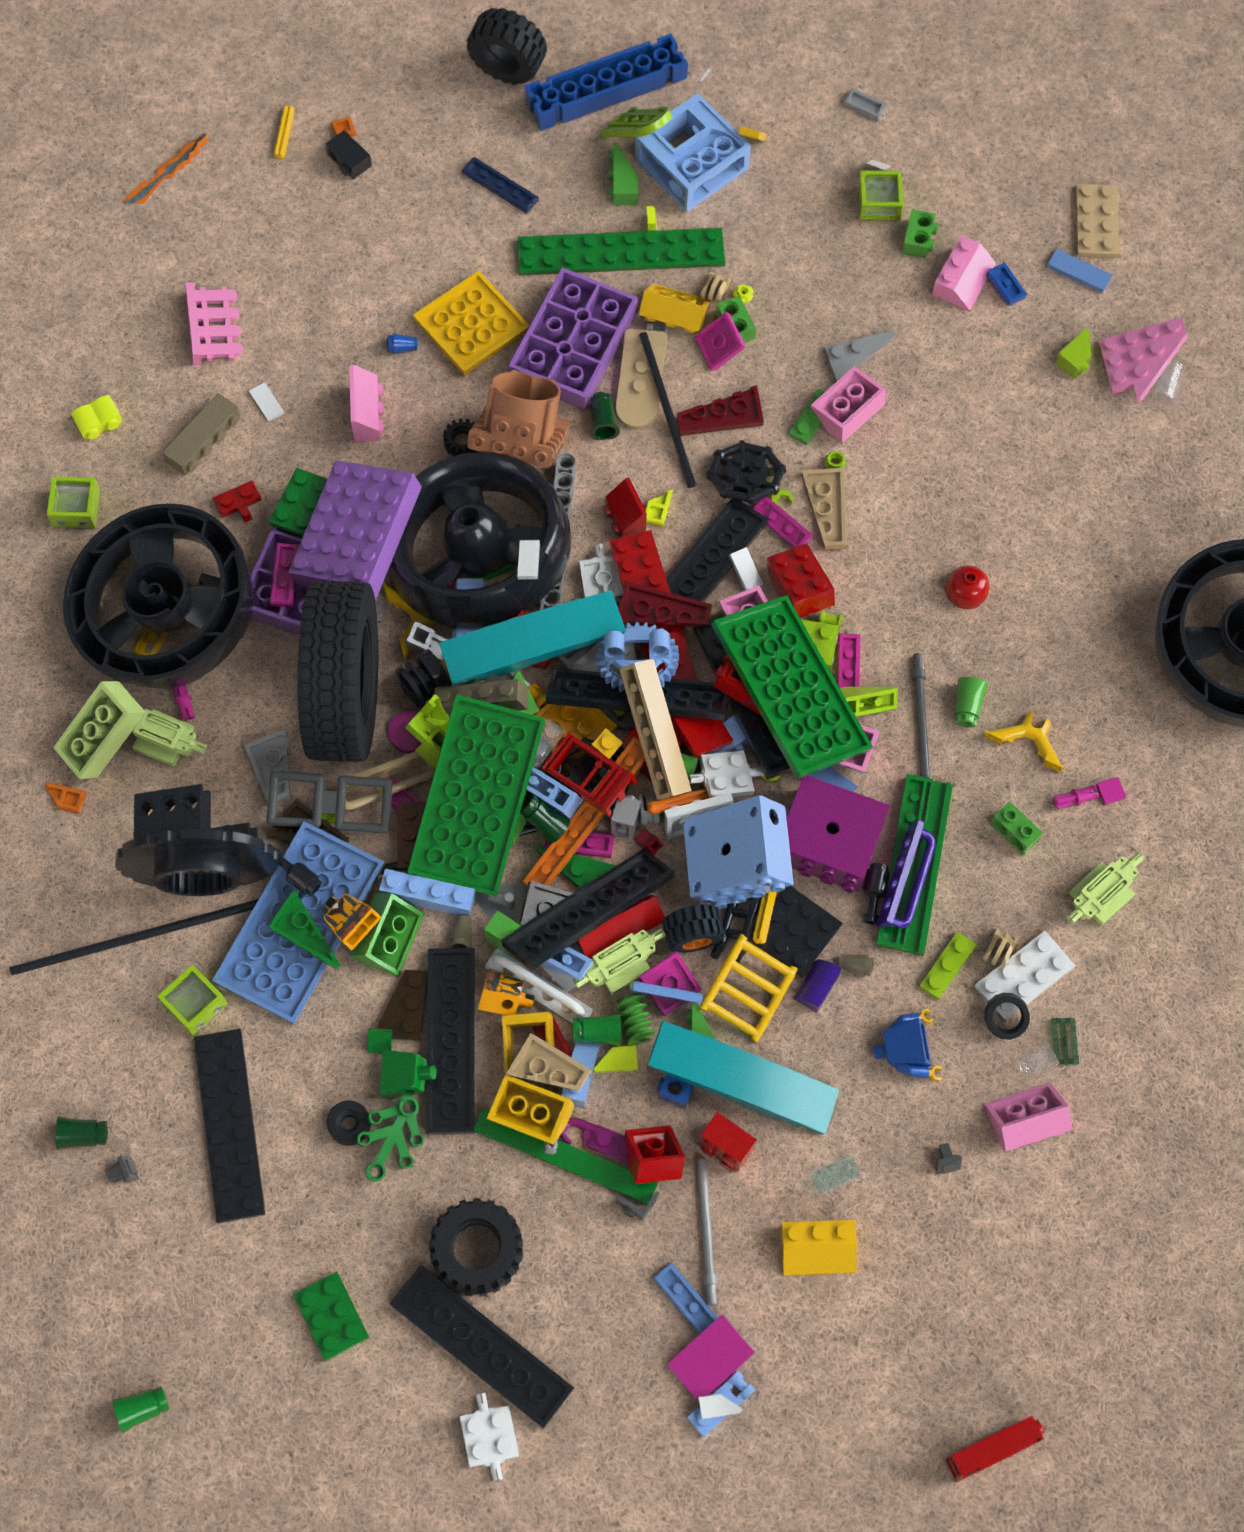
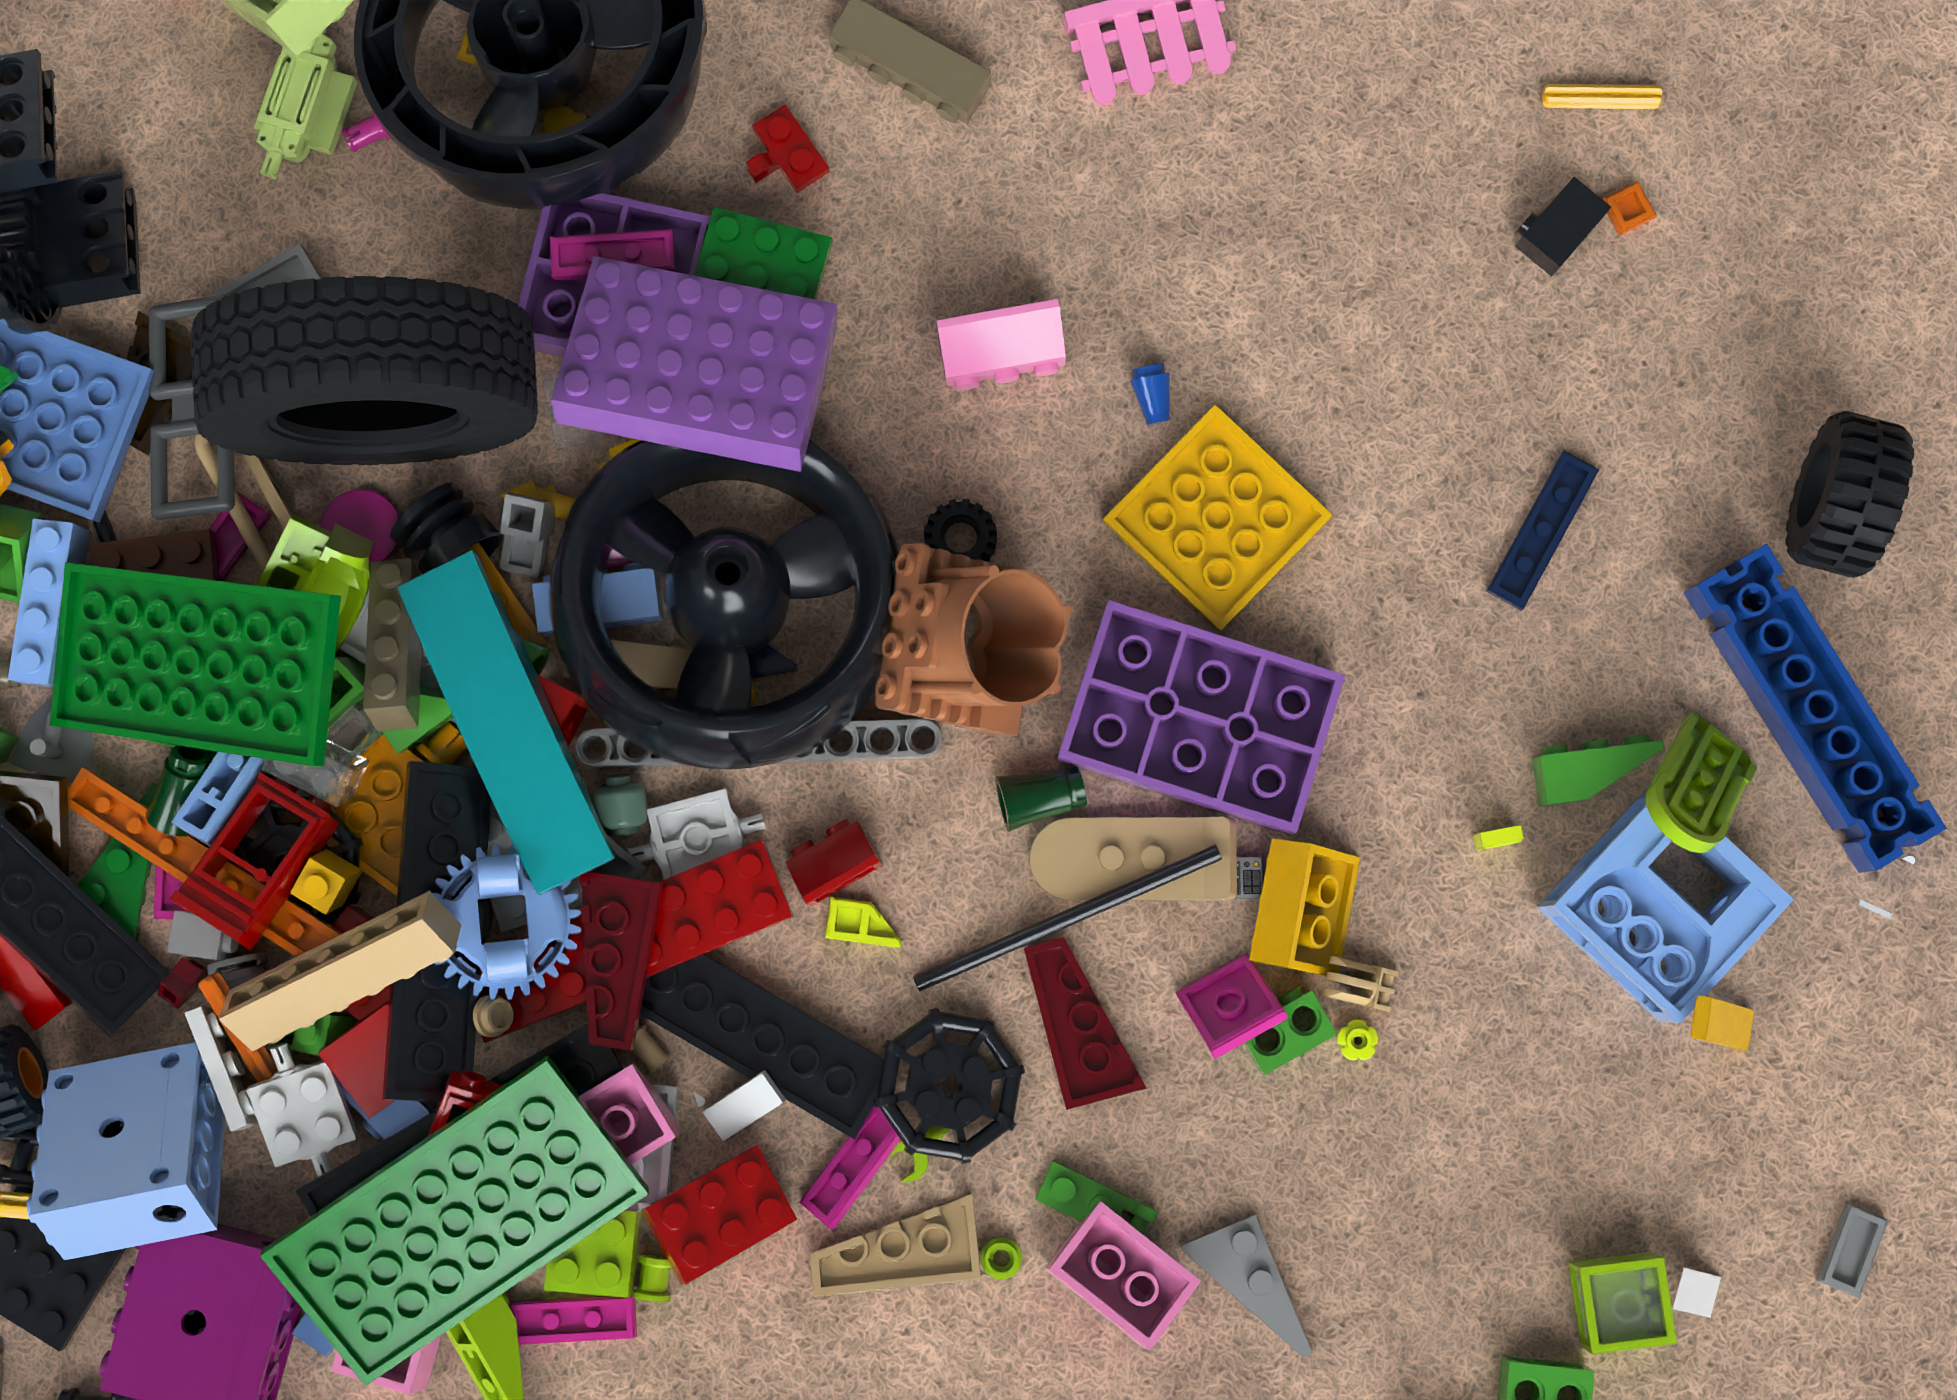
camera: 90 degrees right, 15 degrees up
(266, 402) = (1000, 166): white piece -> none
(300, 876) = (42, 375): black piece -> none
(528, 559) = (639, 691): white piece -> none
(621, 251) = (1423, 788): green plate -> none
(686, 671) = (492, 1016): none -> tan plate

